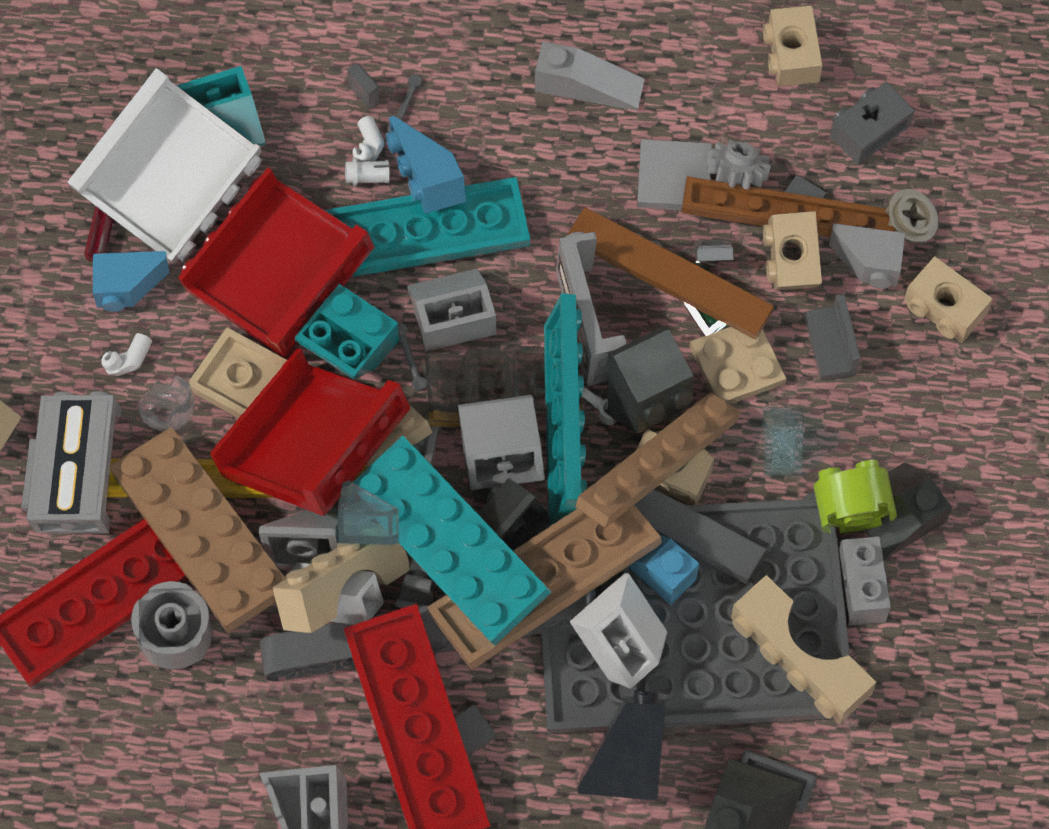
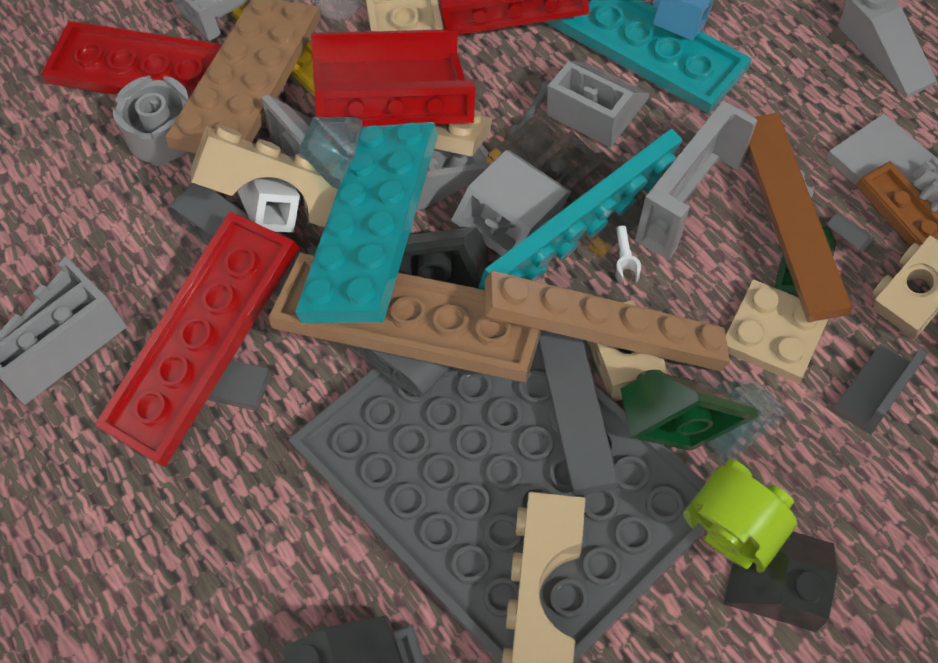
camera: 55 degrees right, 5 degrees down
(349, 333) = (502, 53): teal slope -> none
(622, 632) = (417, 420): white slope -> none
(629, 751) = (306, 518): black slope -> none
(648, 381) = (676, 263): pearl dark grey slope -> none
(667, 570) = (517, 412): dark azure slope -> none
(752, 468) = (680, 411): none -> dark green slope
(864, 581) = (676, 598): light grey brick -> none

